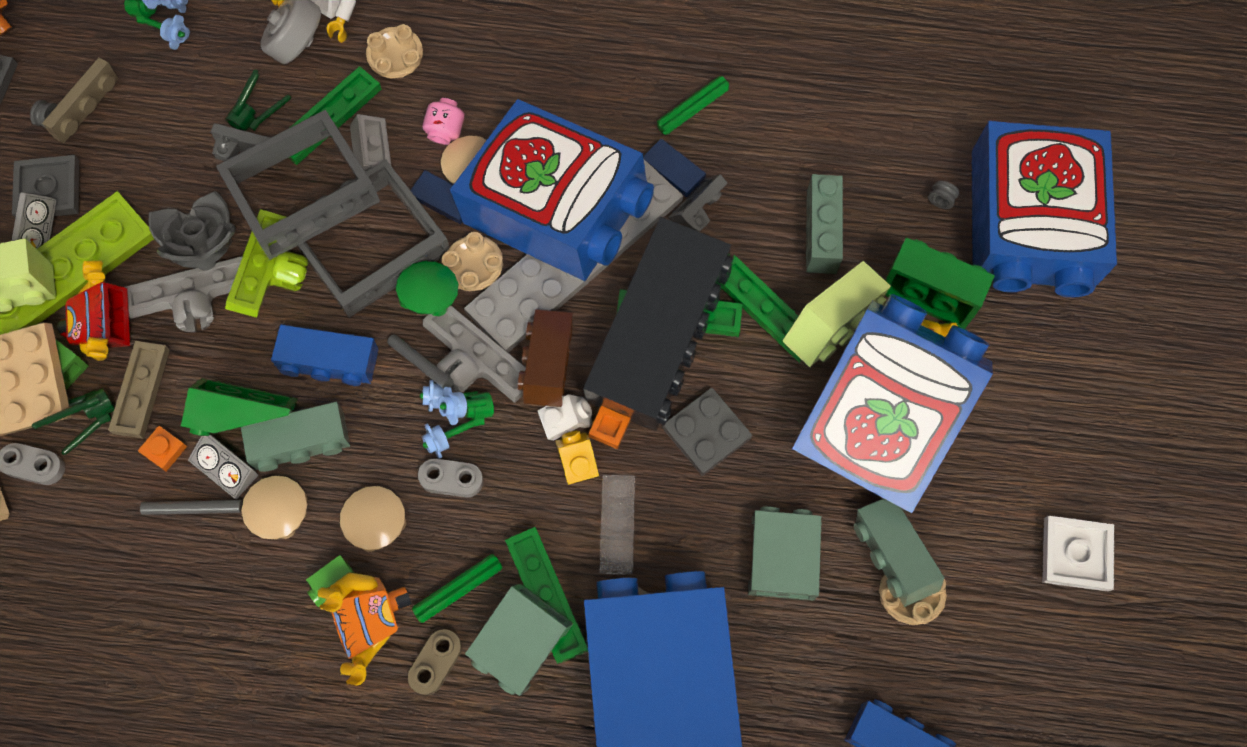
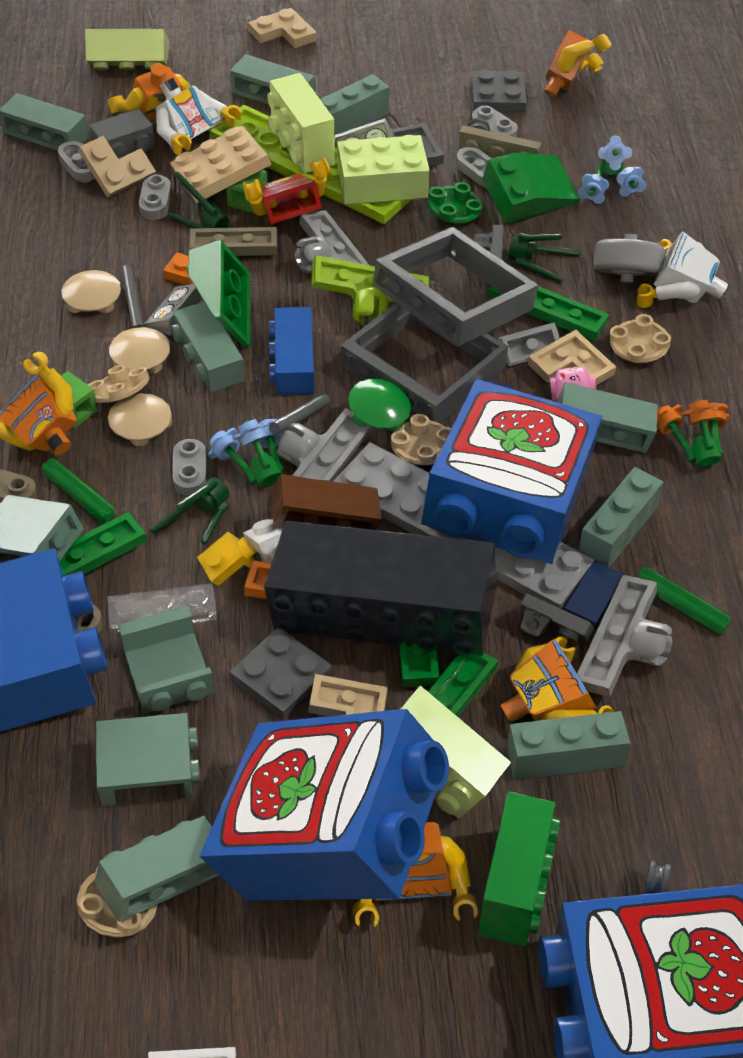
camera: 80 degrees right, 20 degrees down
(30, 93) = (496, 120): none -> light grey plate
(92, 214) = (382, 169): none -> yellowish green brick
(102, 126) = (472, 163): none -> light grey plate
(151, 162) = (454, 203): none -> green dish
(155, 88) = (528, 185): none -> green slope
(168, 549) = (91, 292): none -> tan dish
(194, 237) = (381, 231): dark grey brick -> none
(326, 531) = (119, 384): none -> tan dish
(399, 110) = (571, 352): none -> tan plate
(490, 101) = (624, 420): none -> sand green brick
(501, 462) = (208, 498): none -> dark green plant
(520, 26) = (711, 418): none -> plant
(597, 113) = (621, 517): none -> sand green brick
(684, 527) = (165, 659): none -> sand green panel
(726, 156) = (625, 637): none -> light grey plate
(762, 371) = (344, 697): none -> tan plate
(770, 221) = (548, 685): none -> torso

